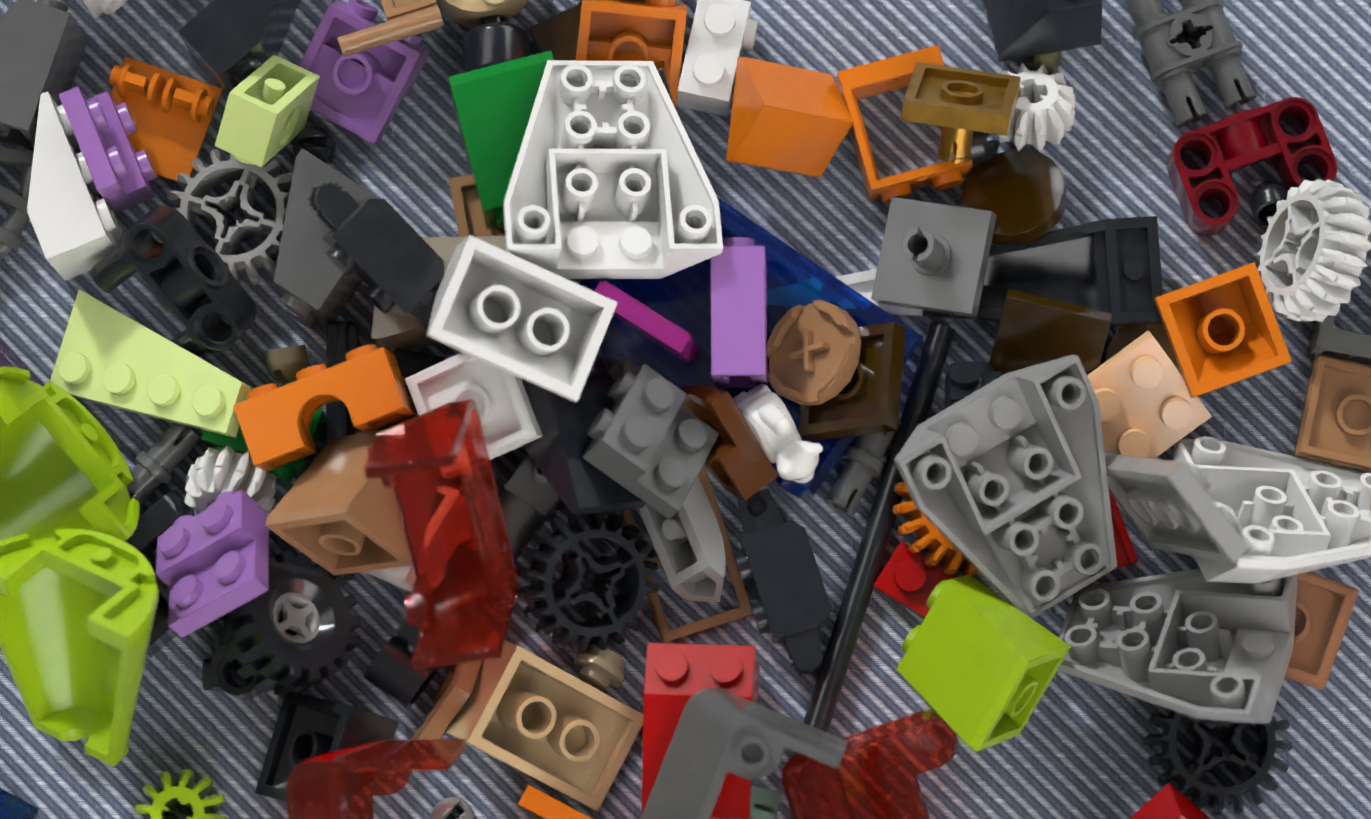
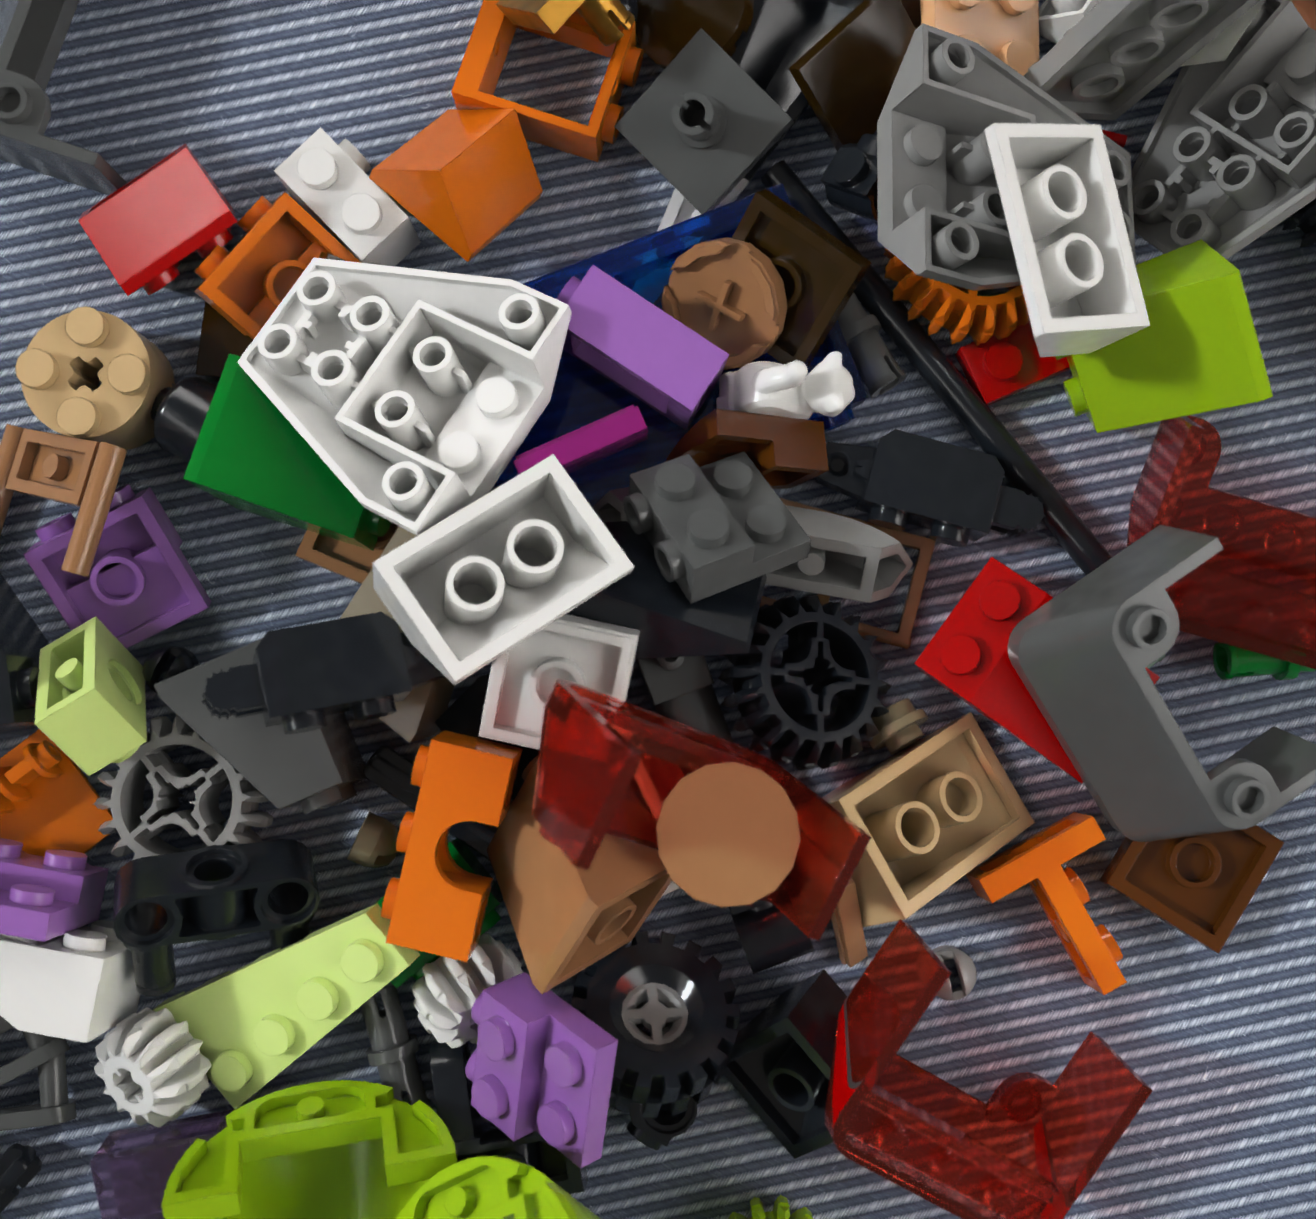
camera: 60 degrees left, 5 degrees up
(45, 313) = (152, 1067): none -> white gear
(444, 573) = (728, 834): none -> medium nougat tile
(976, 534) = (1067, 235): none -> white slope

